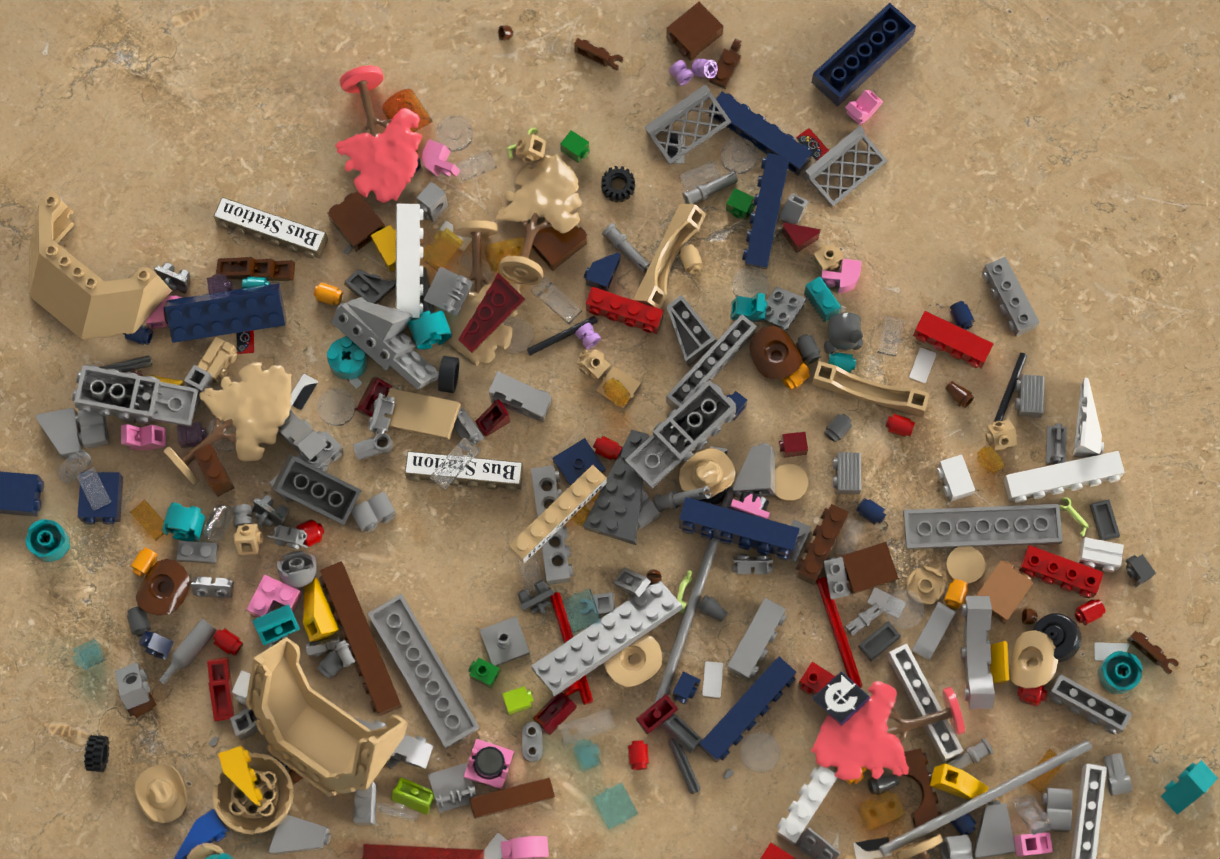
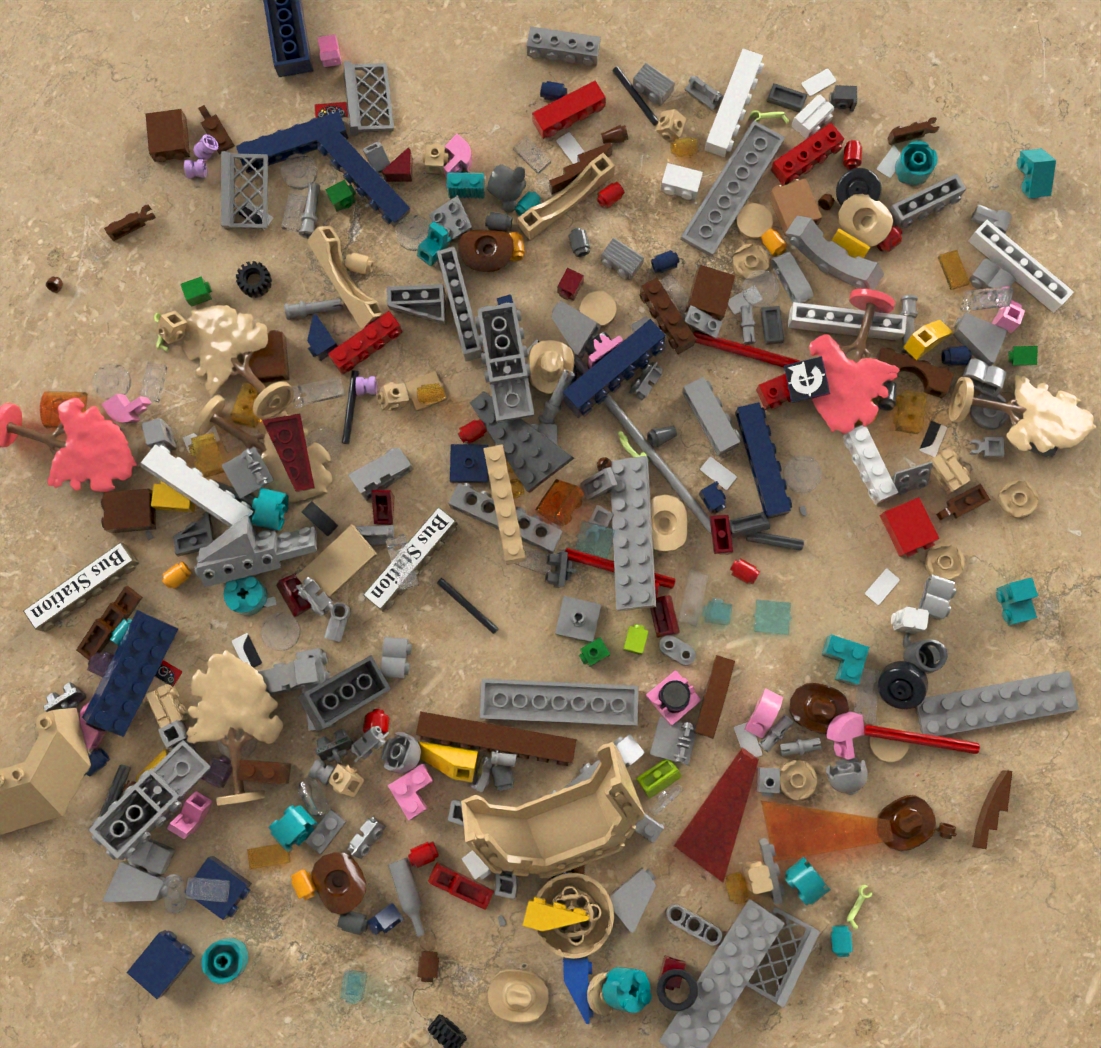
camera: 55 degrees left, 5 degrees up
(132, 685) = (408, 963): light grey brick -> none
(276, 624) = (440, 803): teal brick -> none
(456, 543) = (467, 605): none -> black bar
(594, 561) = (560, 502): none -> clear orange brick
(898, 380) = (572, 171): none -> reddish brown slope
(985, 798) = (952, 327): light grey piece -> none
(1088, 431) = (707, 60): white wedge -> none
(1142, 539) = (818, 82): none -> white sticker

